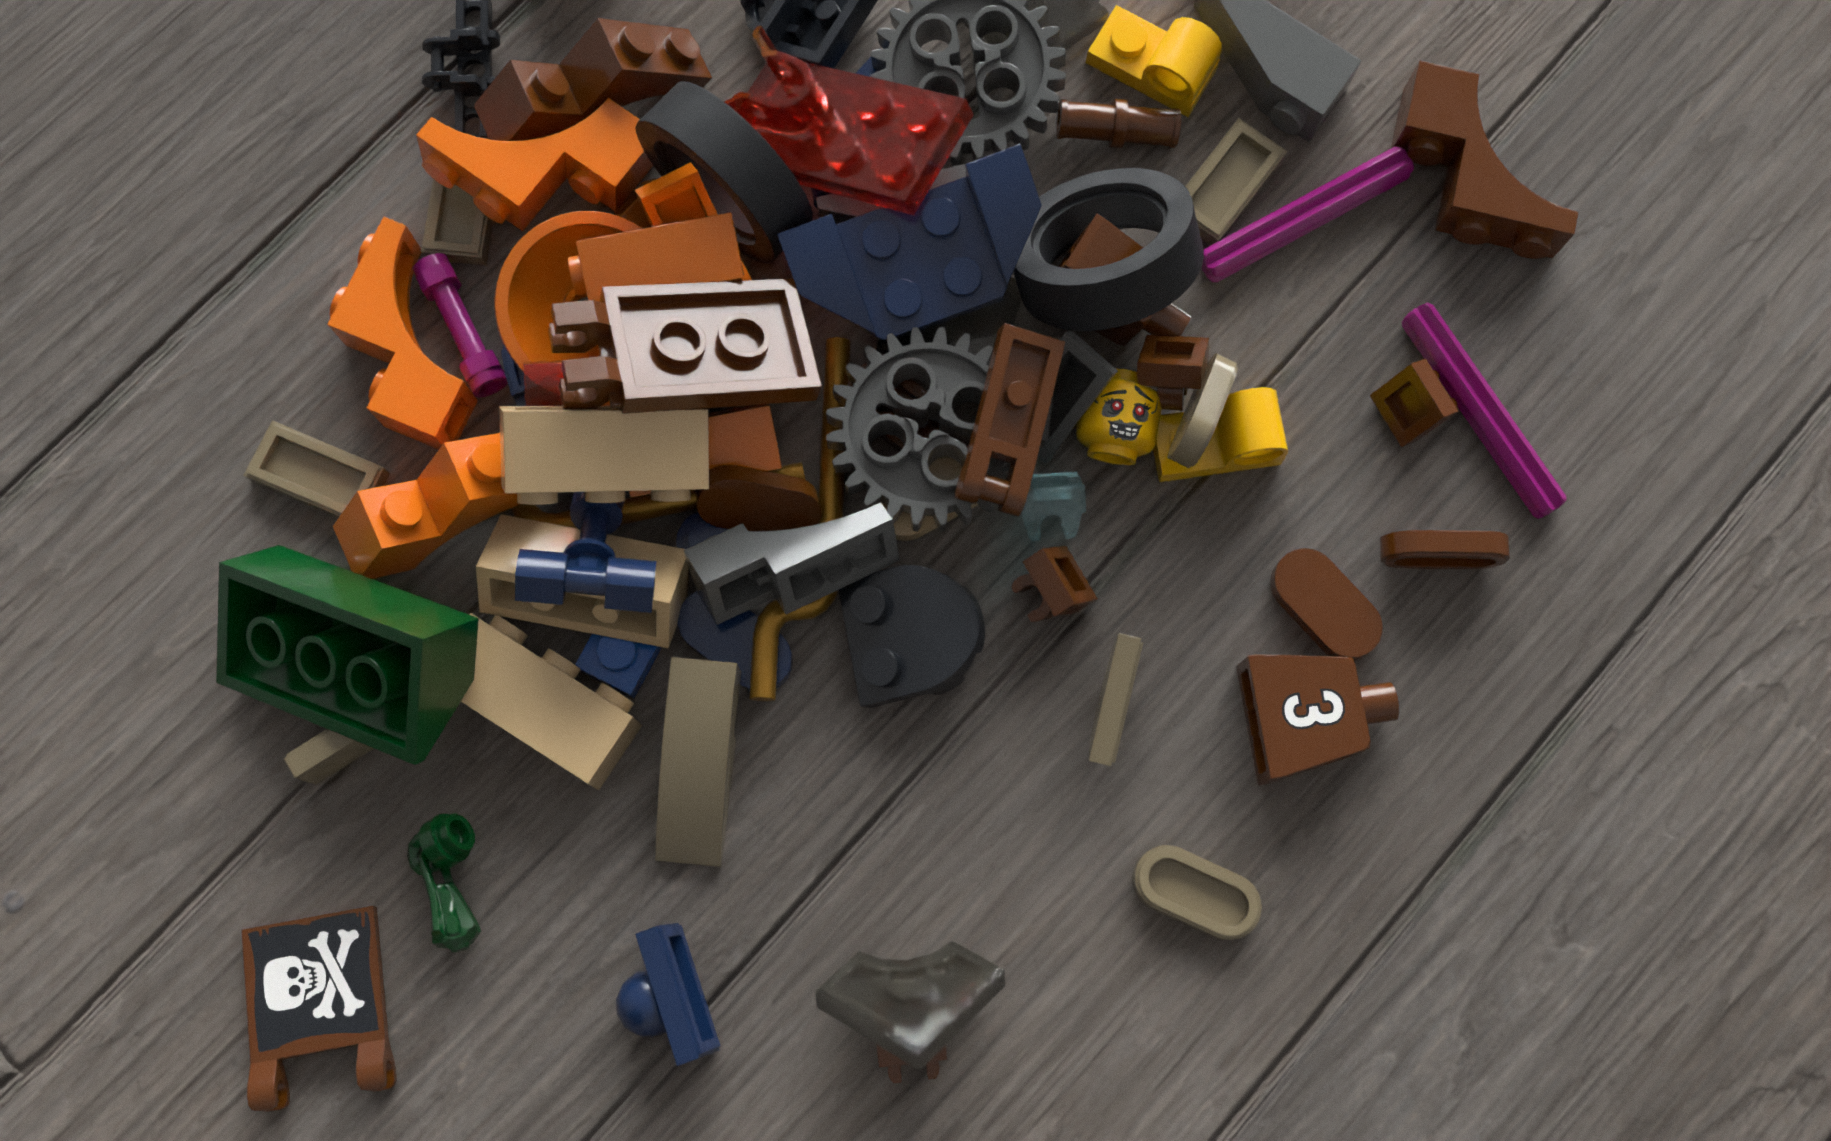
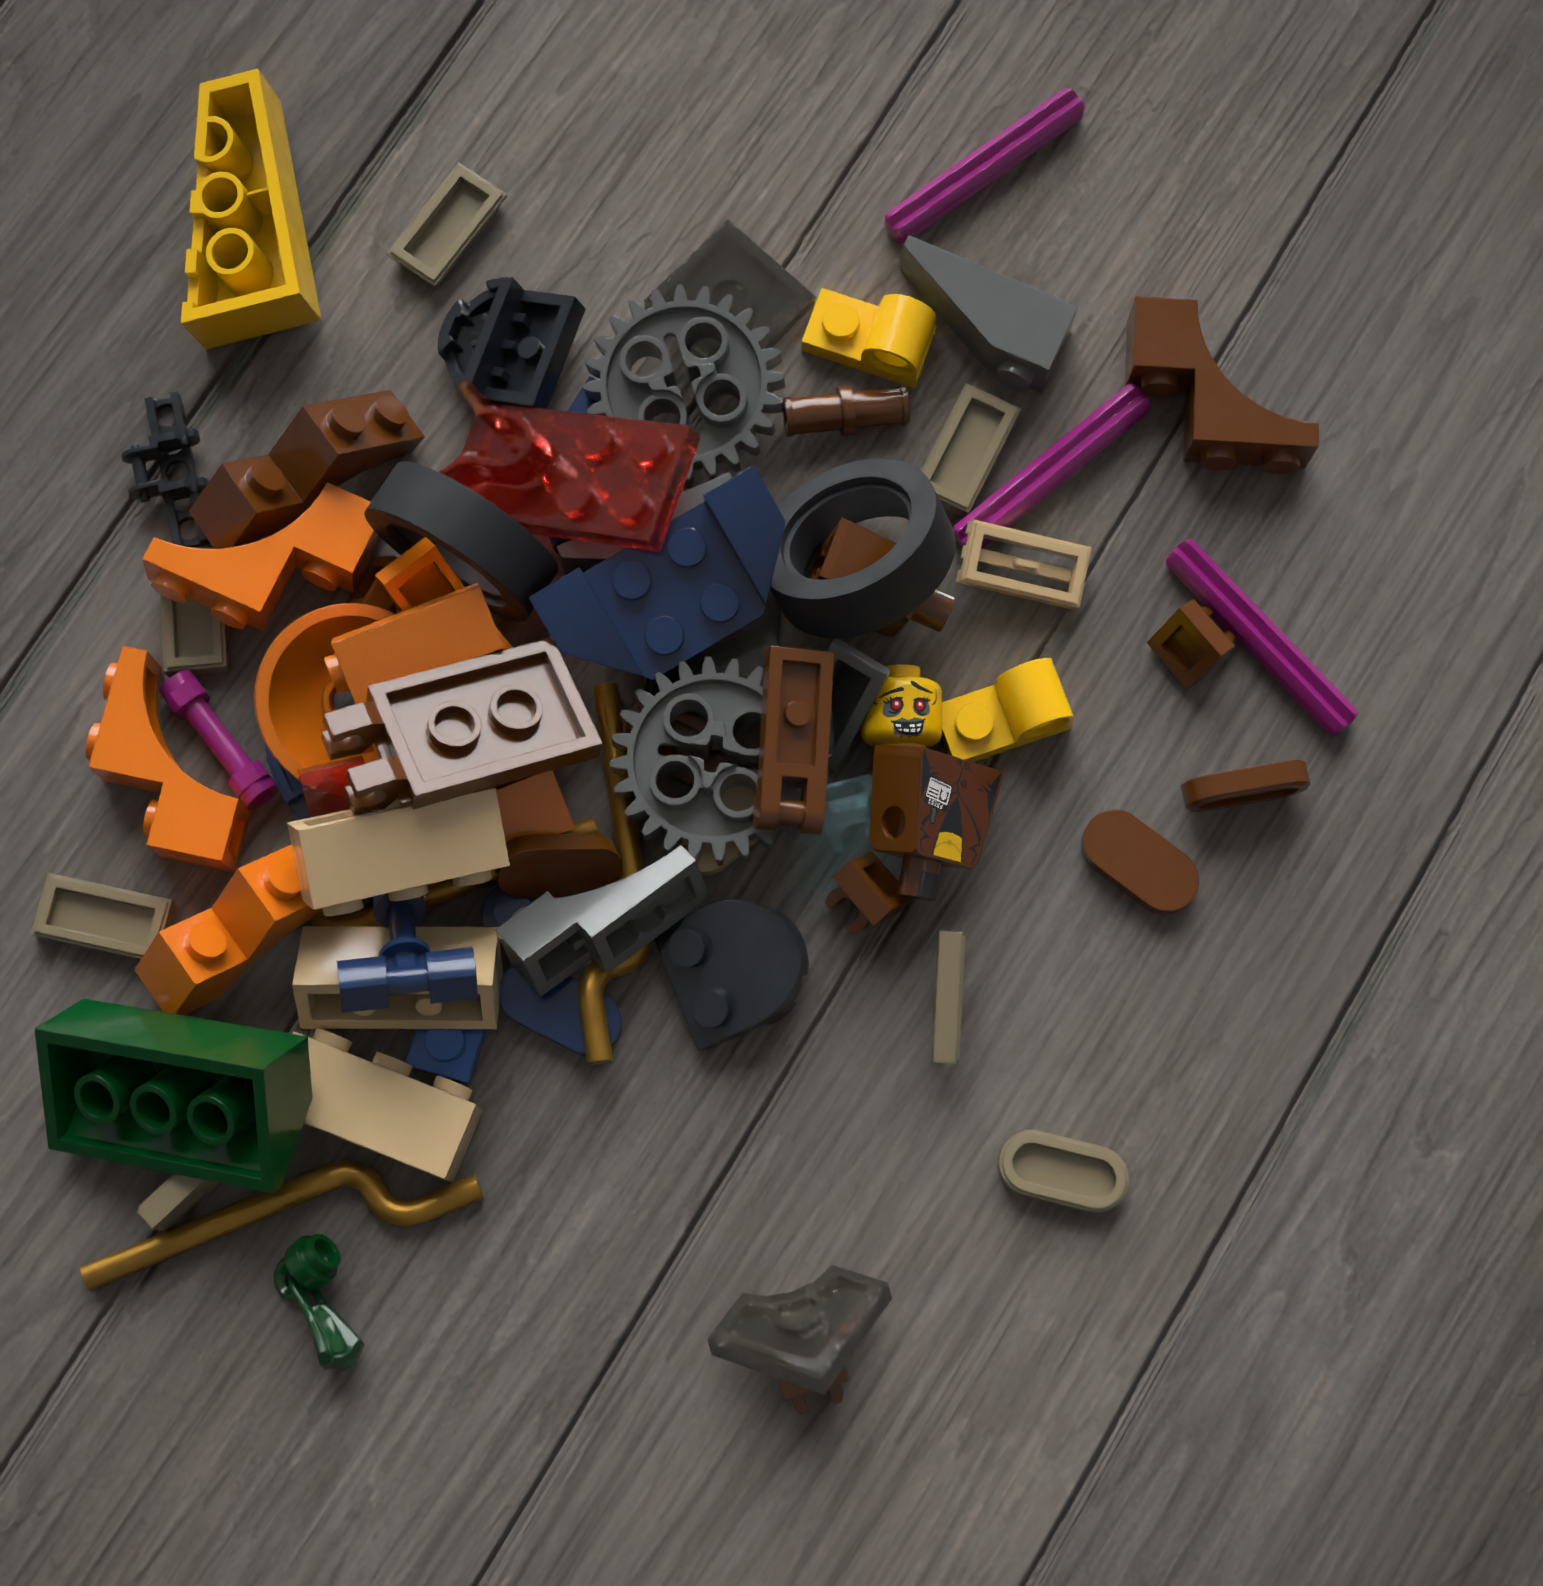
camera: 10 degrees left, 0 degrees up
(312, 992) = (210, 1436): flag -> none
(425, 774) = (266, 1204): none -> pearl gold piece
(668, 996) = (563, 1372): dark blue tile -> none
(697, 761) = (546, 1136): dark tan slope -> none
(1129, 516) = (929, 813): none -> reddish brown torso
(1173, 367) = (945, 653): reddish brown tile -> none
(1203, 412) = (982, 694): dark tan tile -> none
(1217, 279) = (973, 553): none -> tan tile
(1308, 711) = (1140, 973): reddish brown torso -> none

